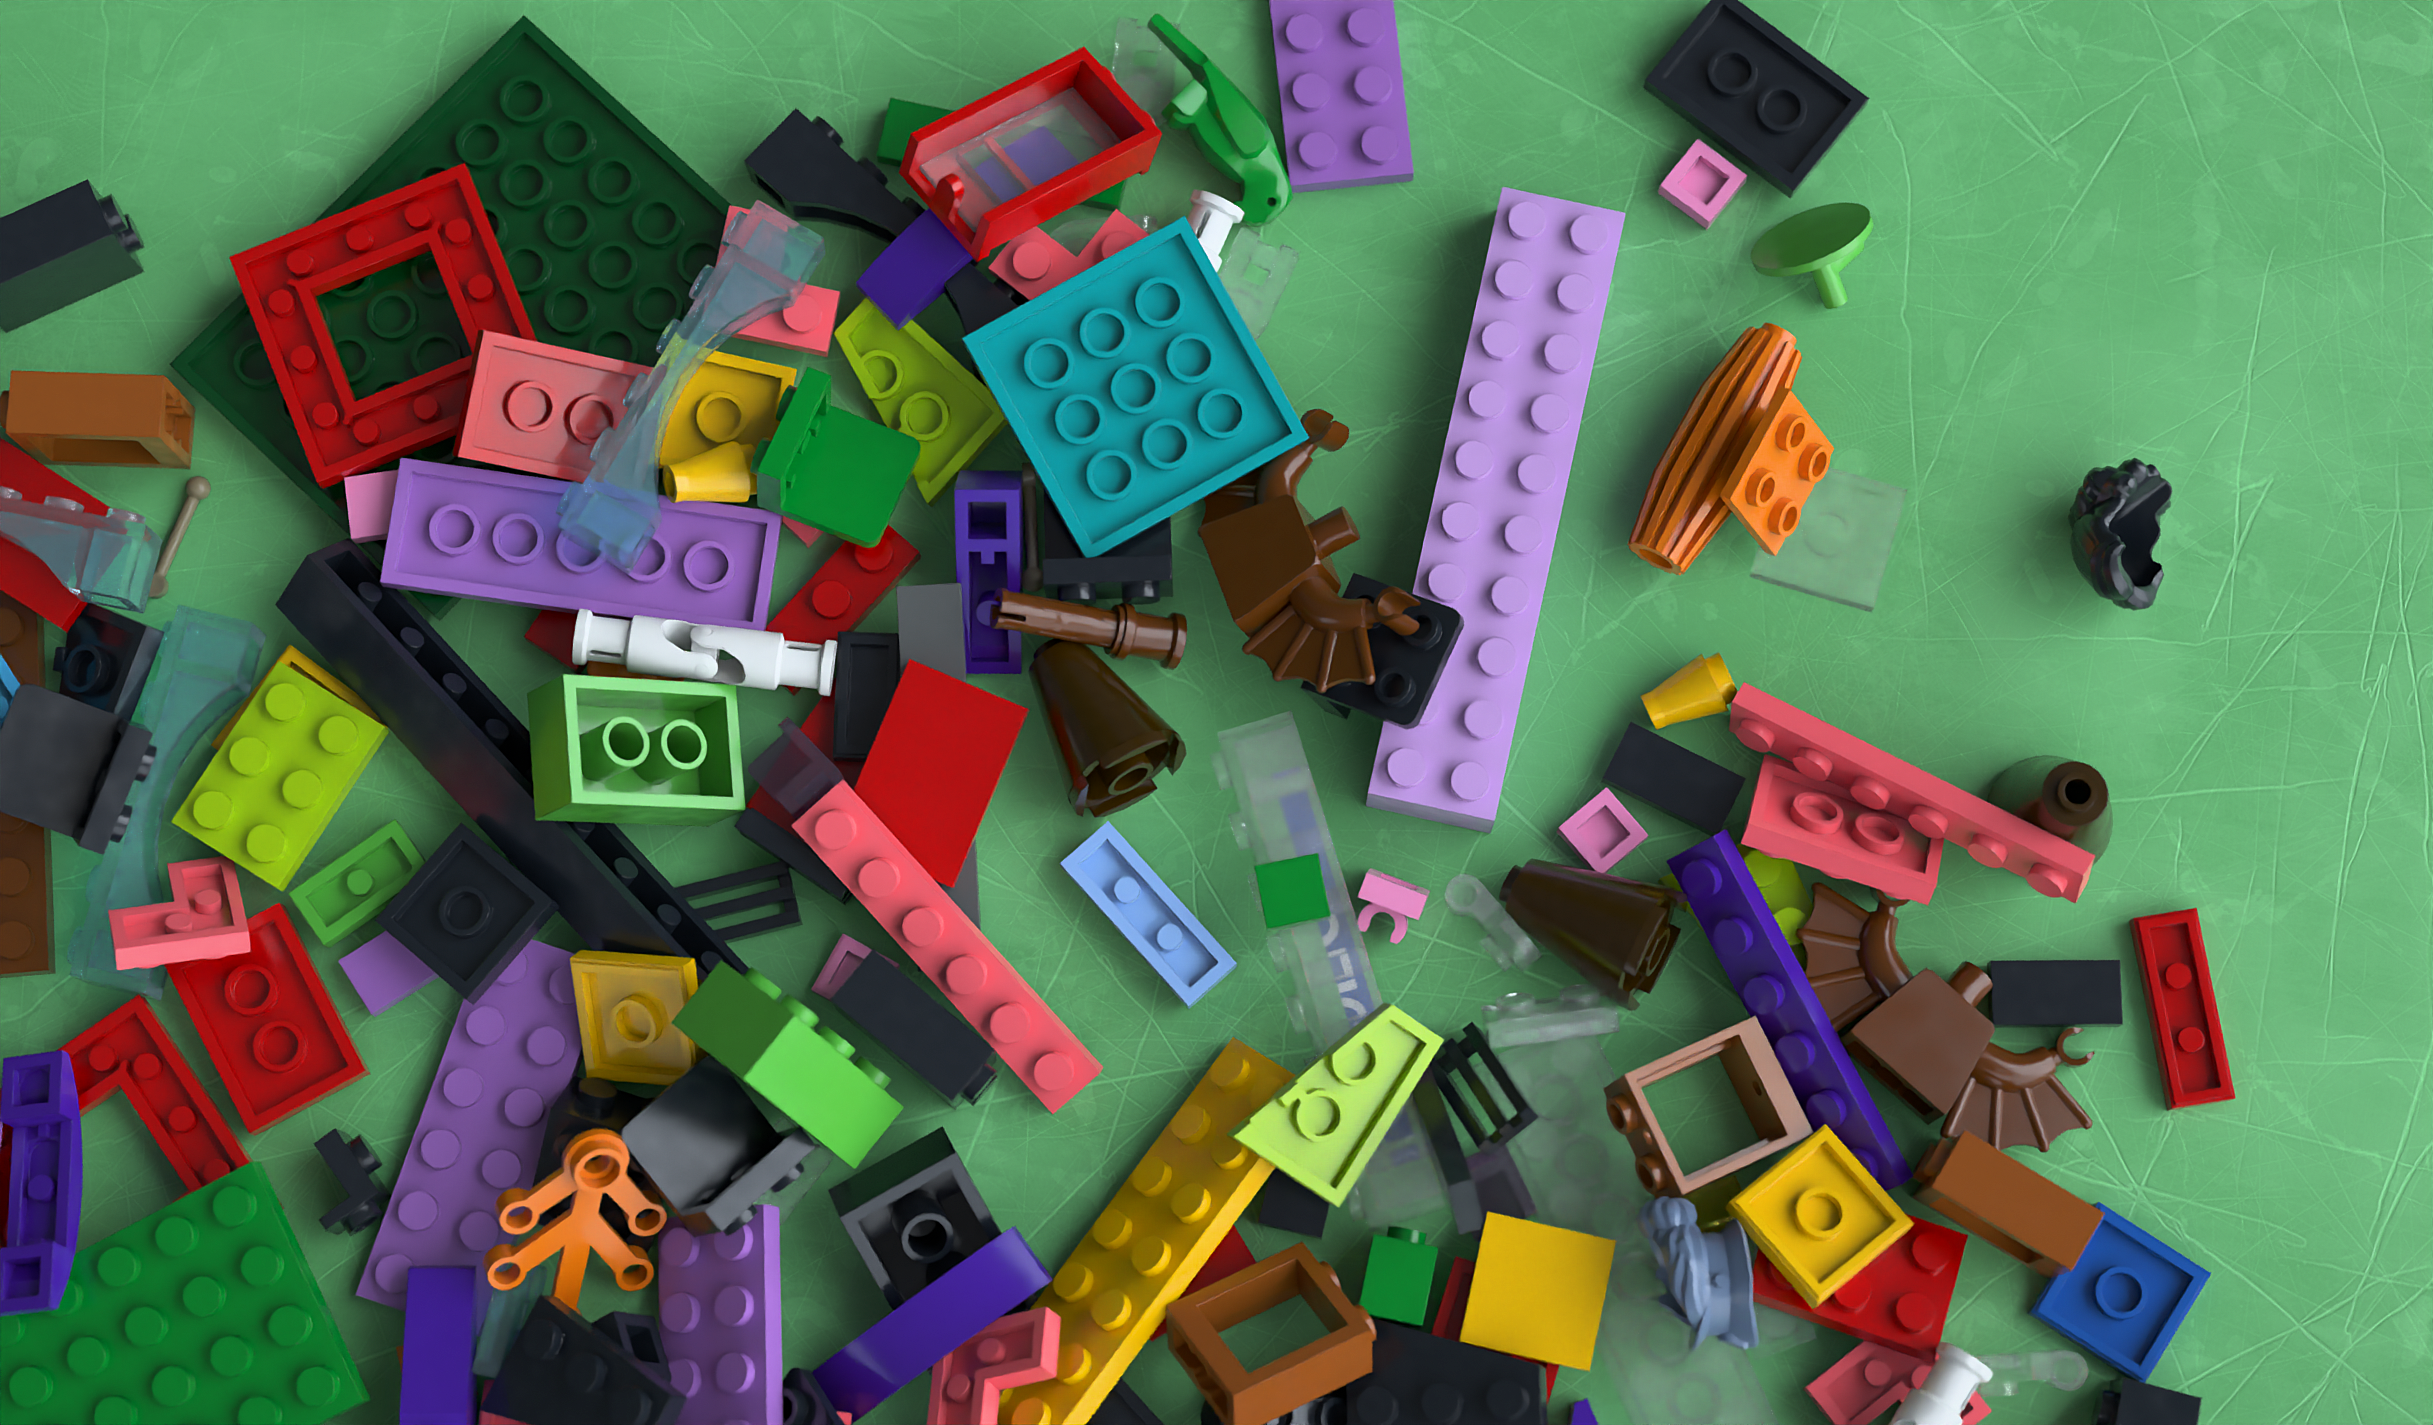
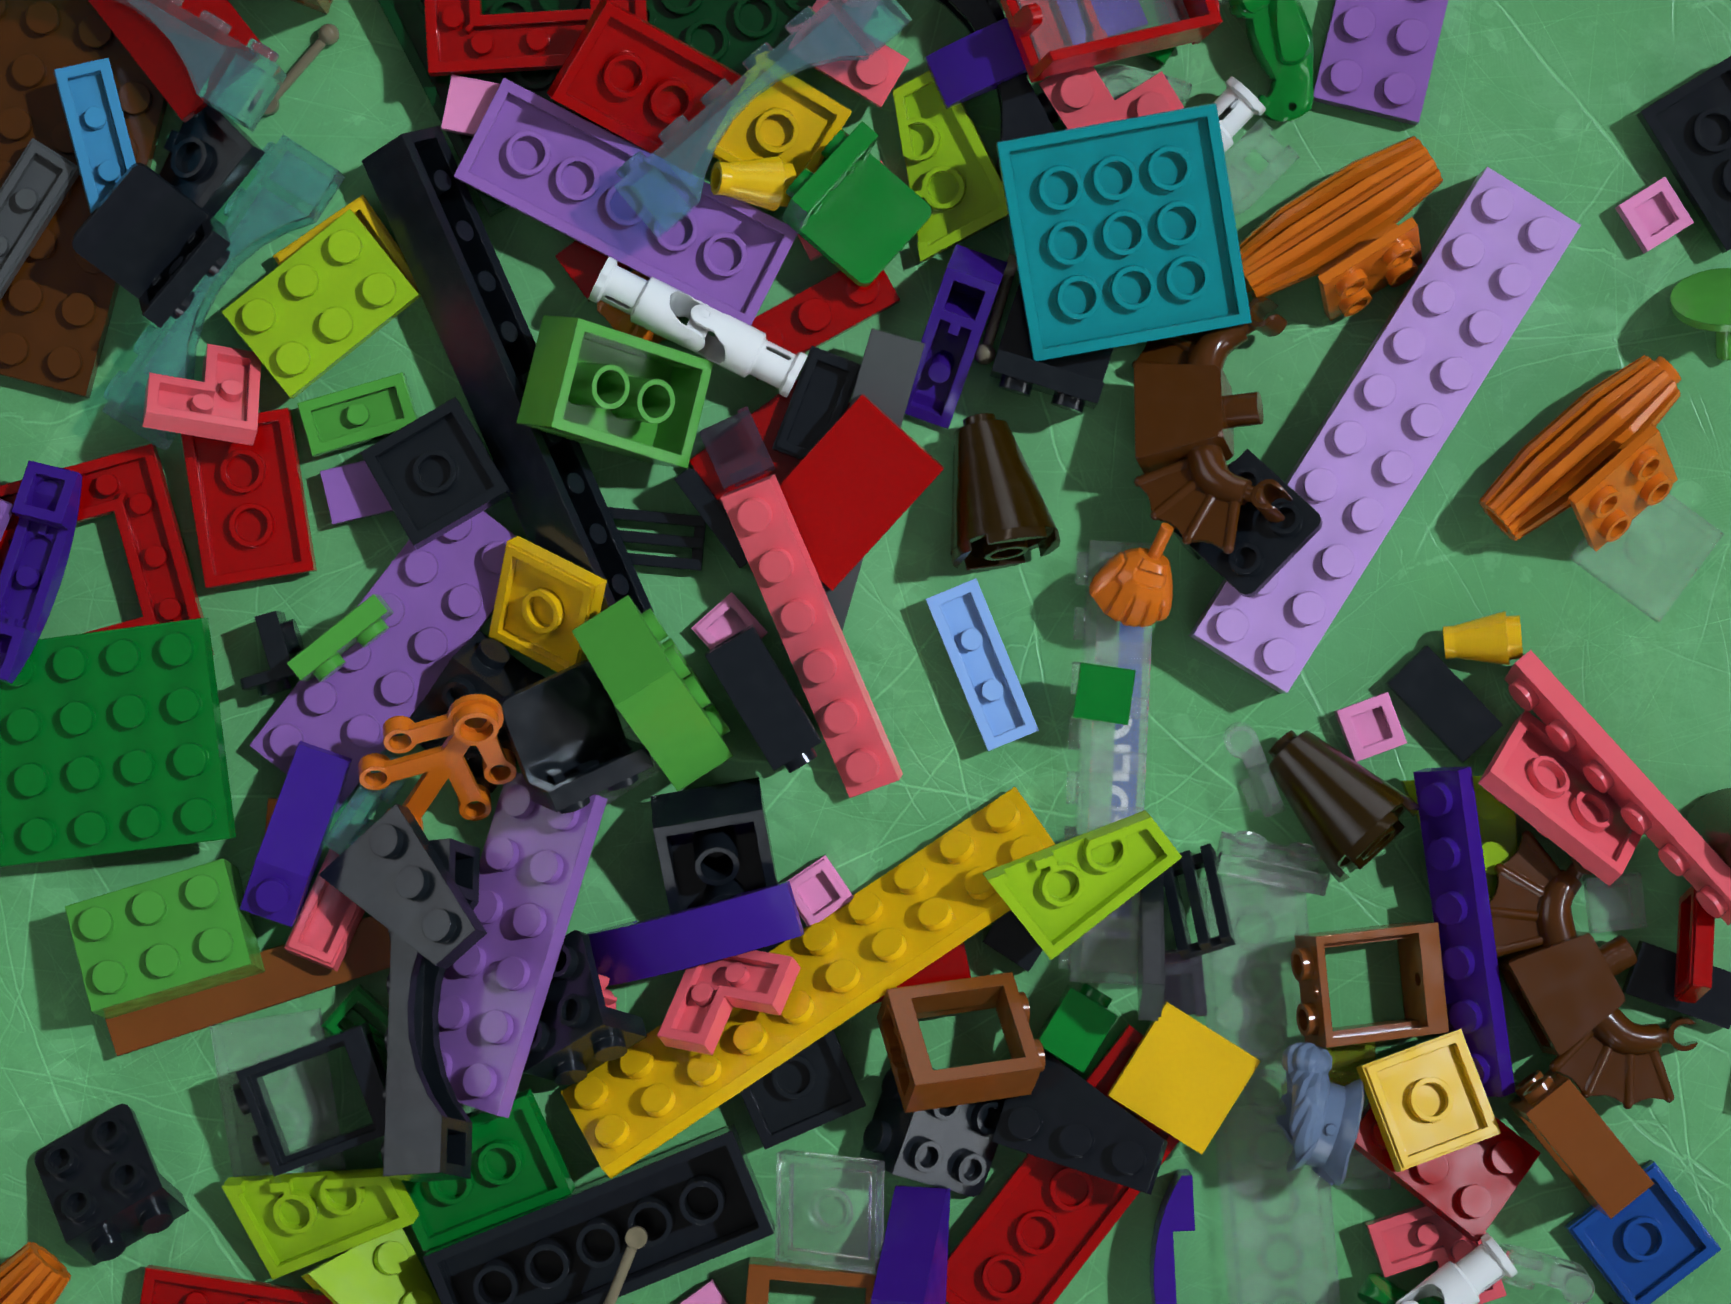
camera: 20 degrees right, 10 degrees up
(406, 1155) = (324, 655): none -> bright green plate
(1055, 1231) = (819, 891): none -> bright pink tile
(1116, 630) = (1038, 425): reddish brown pin -> none
(1285, 759) = (1136, 583): none -> orange piece
(1379, 308) = (1346, 231): none -> orange plate
(1392, 897) = (1183, 720): bright pink tile -> none
(1943, 930) = (1616, 905): none -> clear tile
(2048, 945) = (1694, 949): none -> red tile

